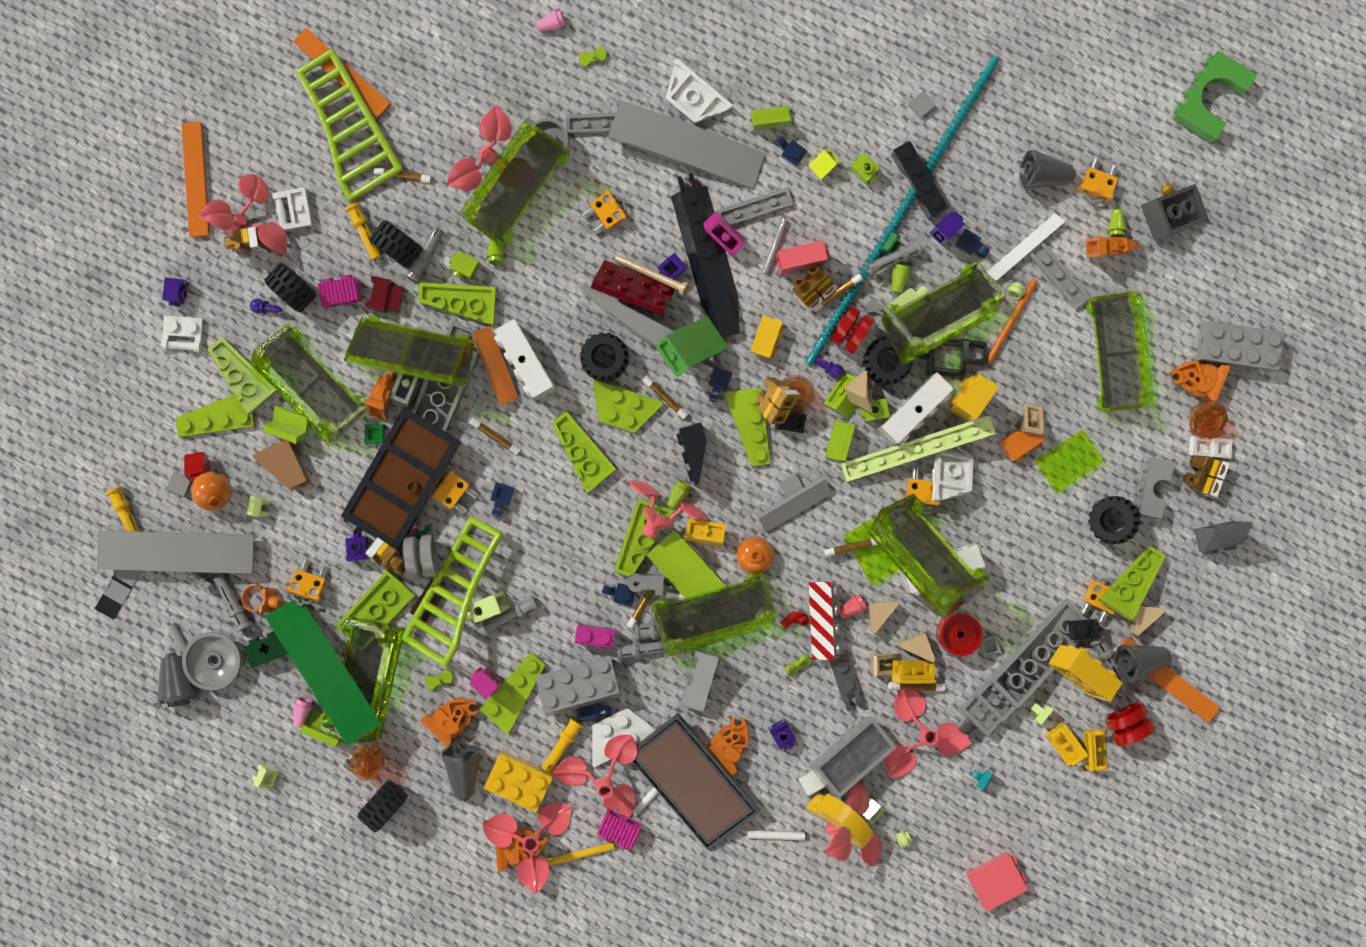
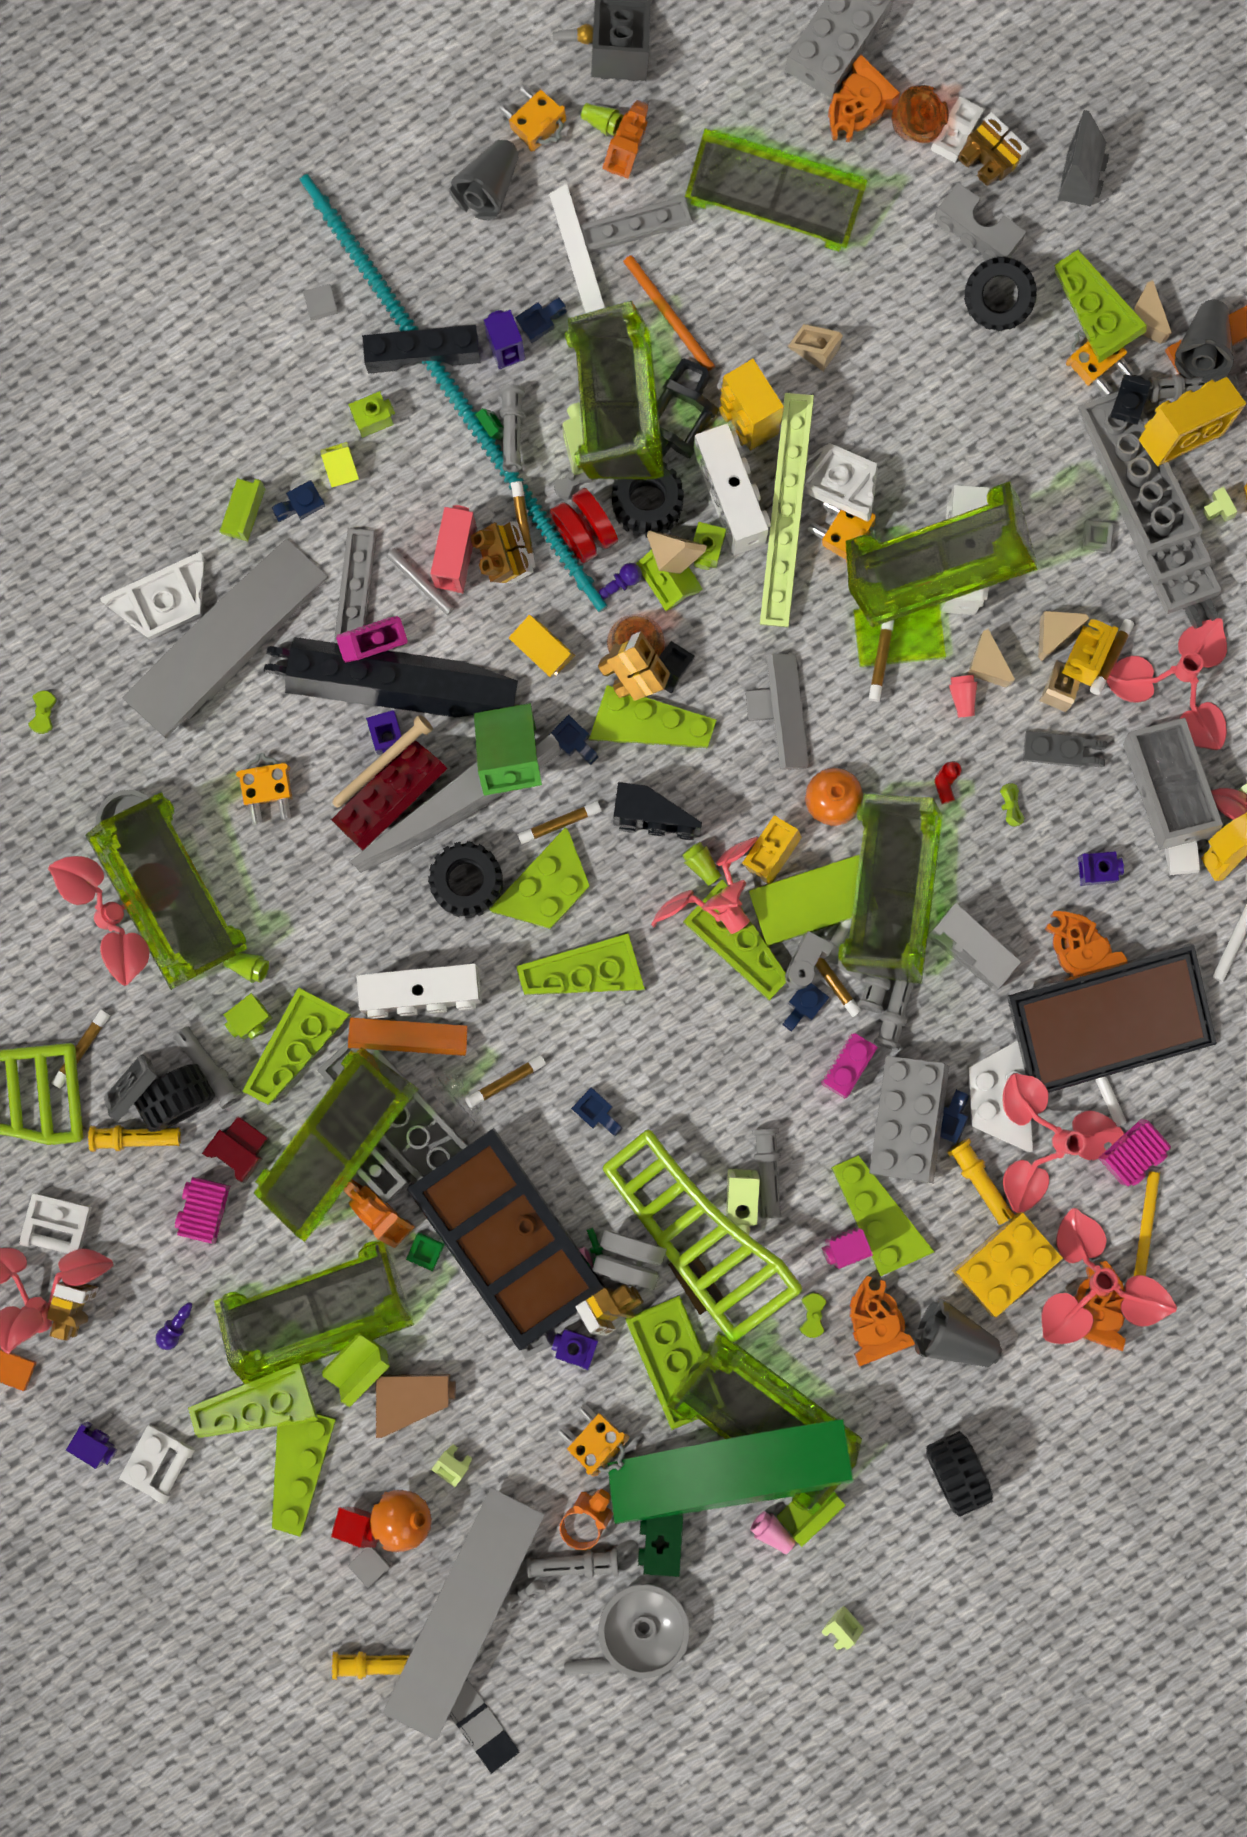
camera: 60 degrees left, 5 degrees down
(173, 684) = (651, 1701): dark grey cone -> none
(290, 287) = (164, 1274): black tyre -> none
(366, 762) = (886, 1470): clear orange cone -> none
(389, 215) = (129, 1087): none -> dark grey tile
(450, 488) = (551, 1178): light orange piece -> none
(589, 123) = (133, 755): light grey tile -> none
(824, 620) = (966, 740): brick -> none
(840, 441) = (728, 610): lime panel -> none
(899, 277) = (540, 432): lime cone -> none
(947, 634) = (1061, 551): red wheel -> none
(1015, 290) = (630, 288): yellowish green plate -> none
(1018, 443) = (839, 374): orange slope -> none
(1068, 461) = (893, 321): clear neon green tile -> none

